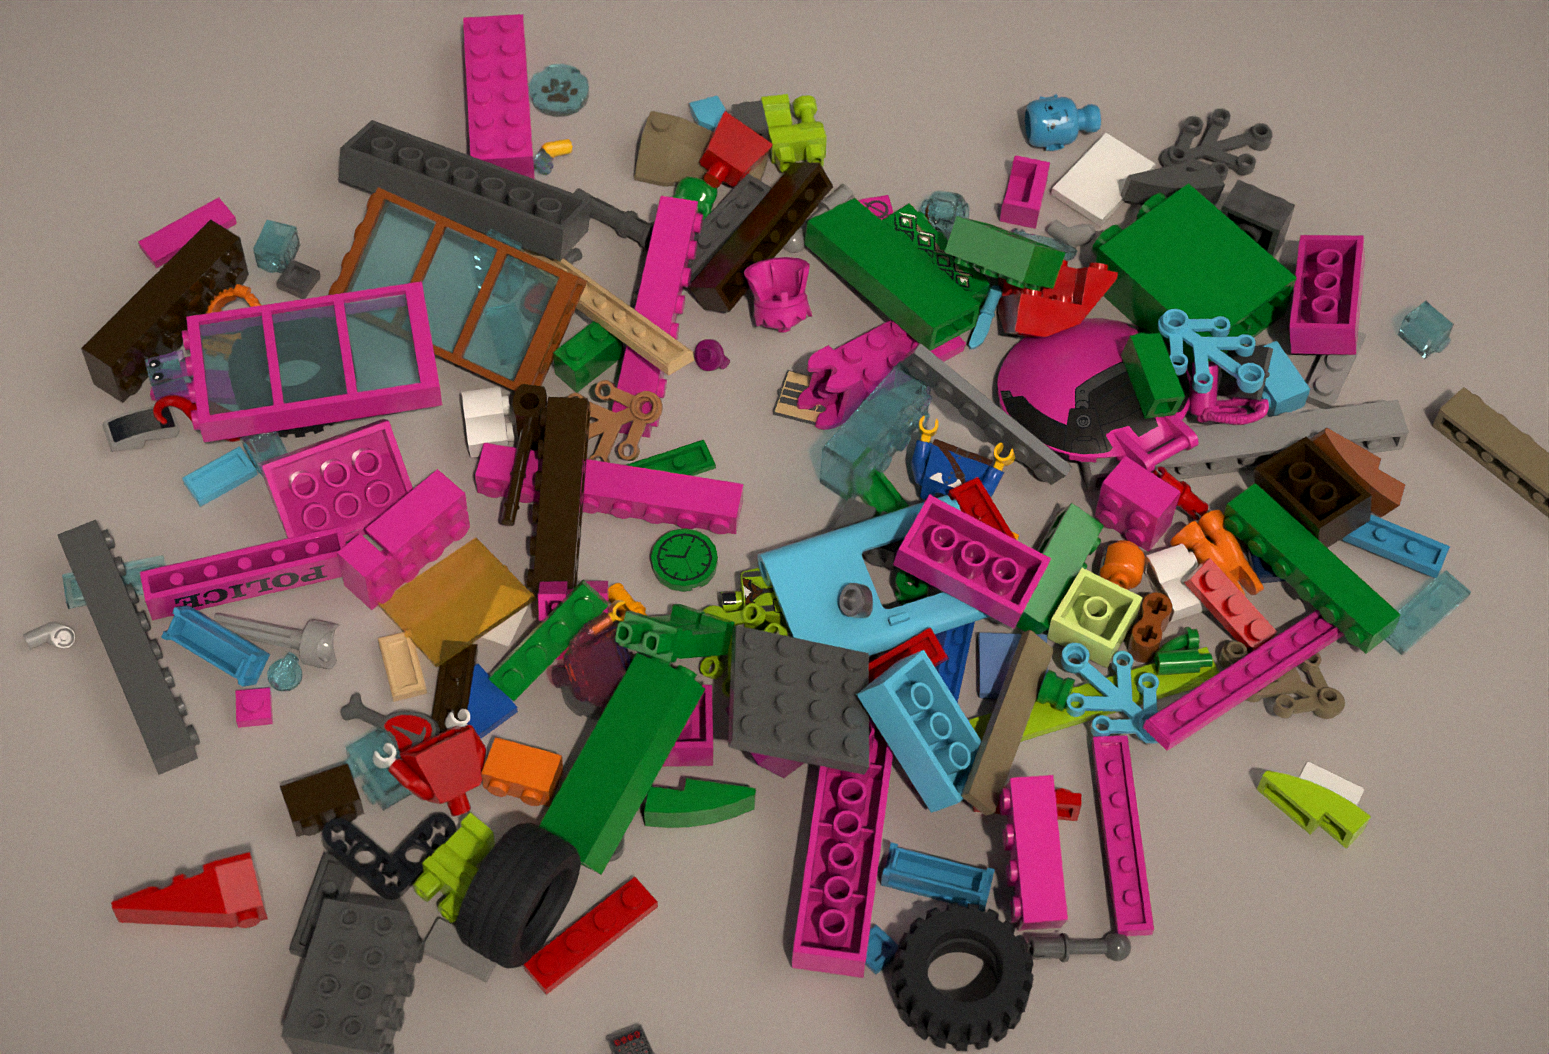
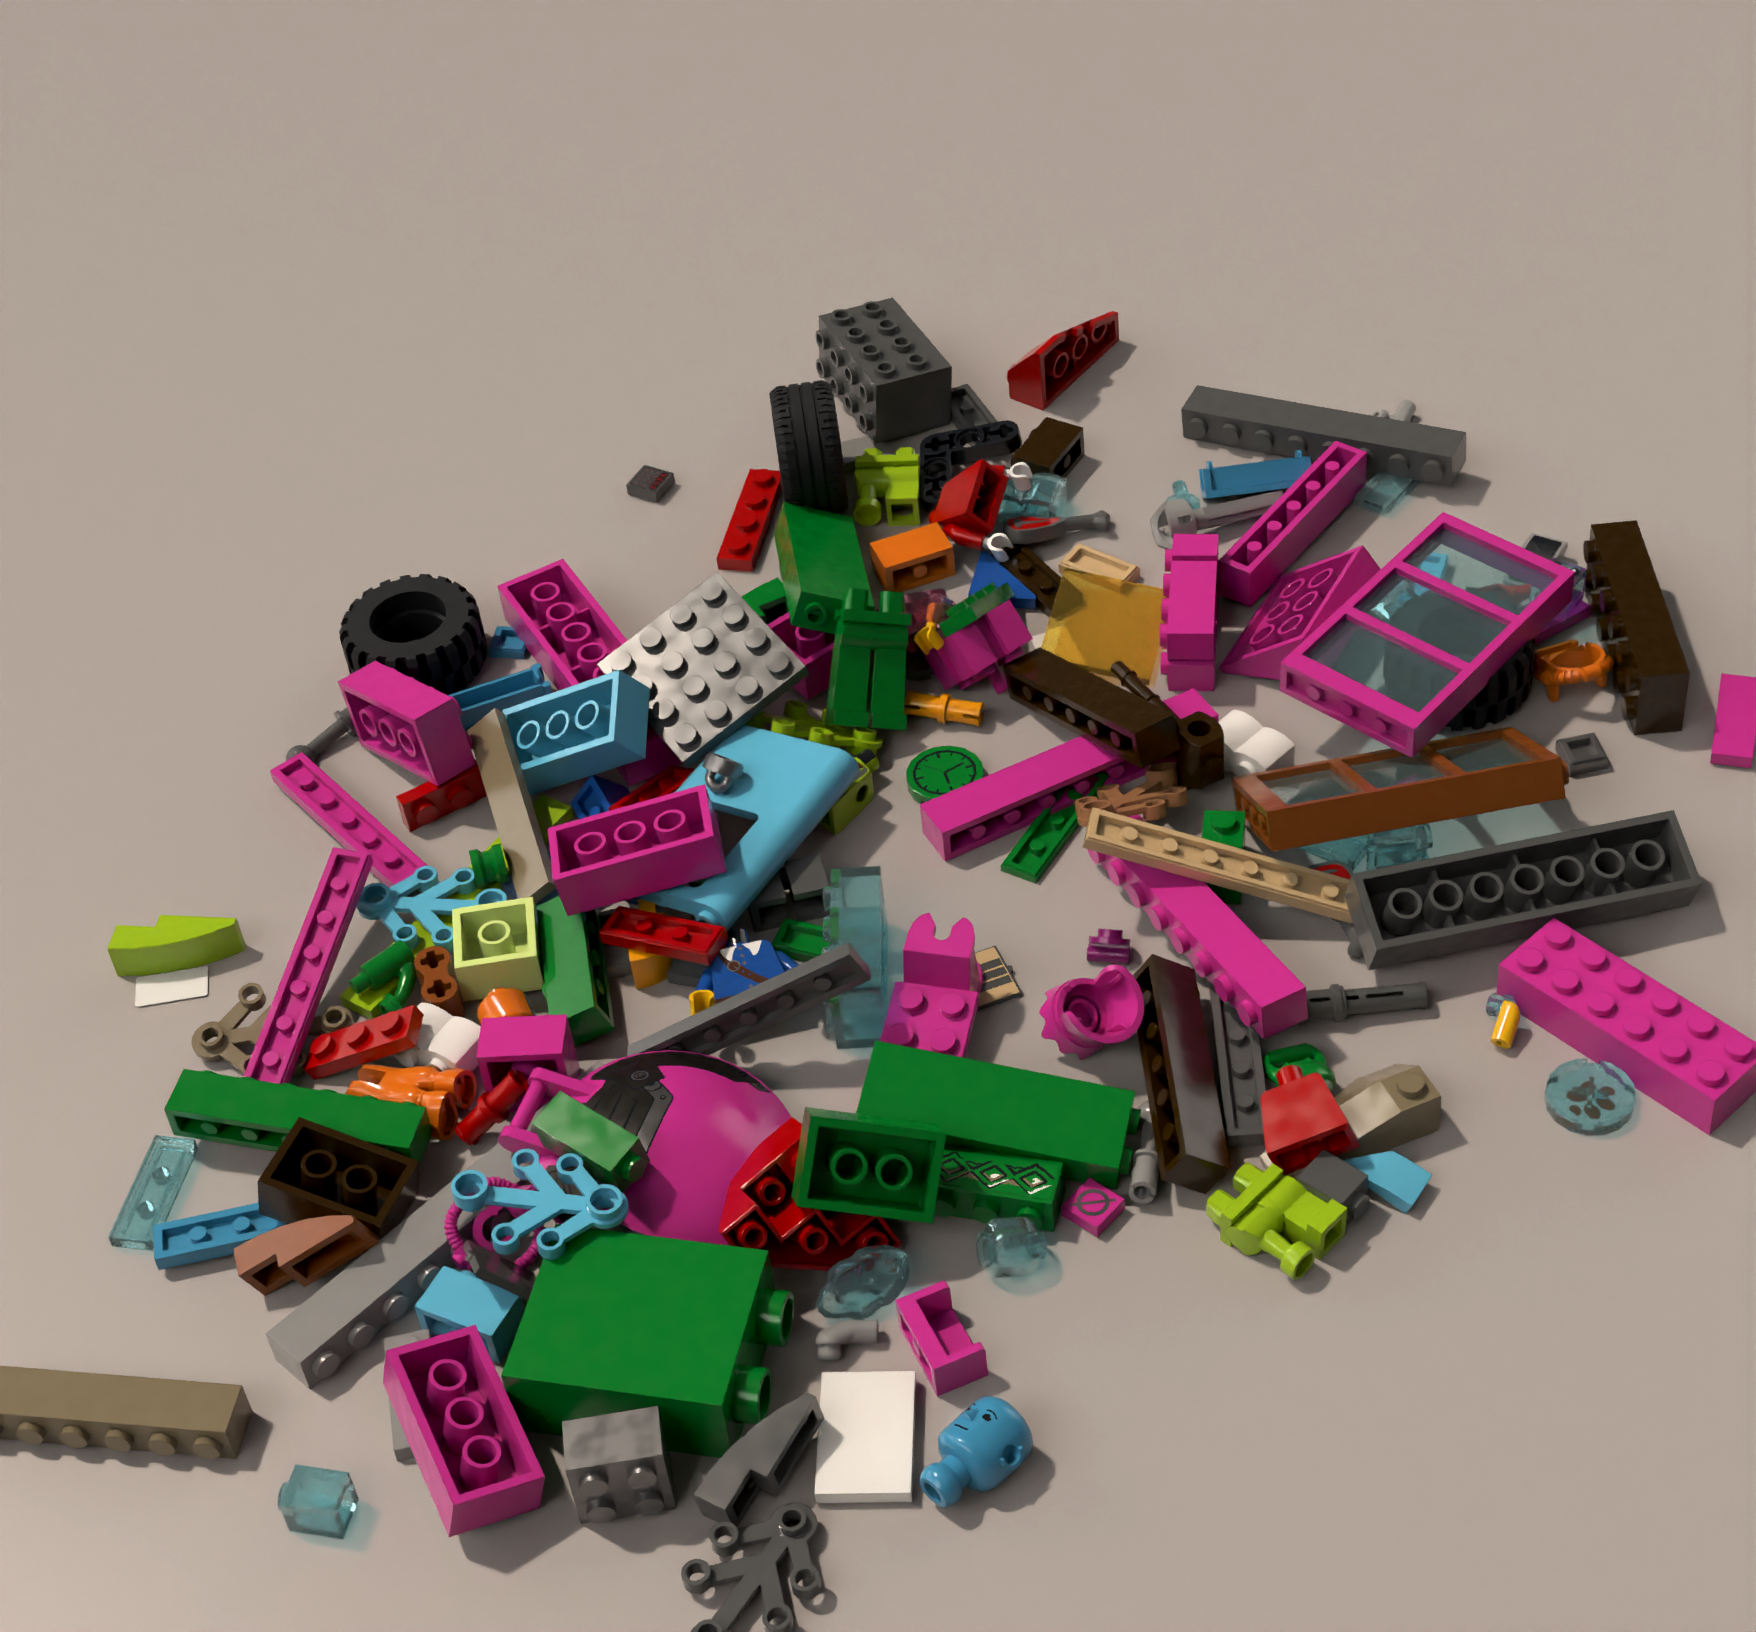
camera: 150 degrees right, 15 degrees down
(254, 707) = (1177, 471): dark pink plate -> none
(276, 246) = (1634, 752): clear light blue brick -> none

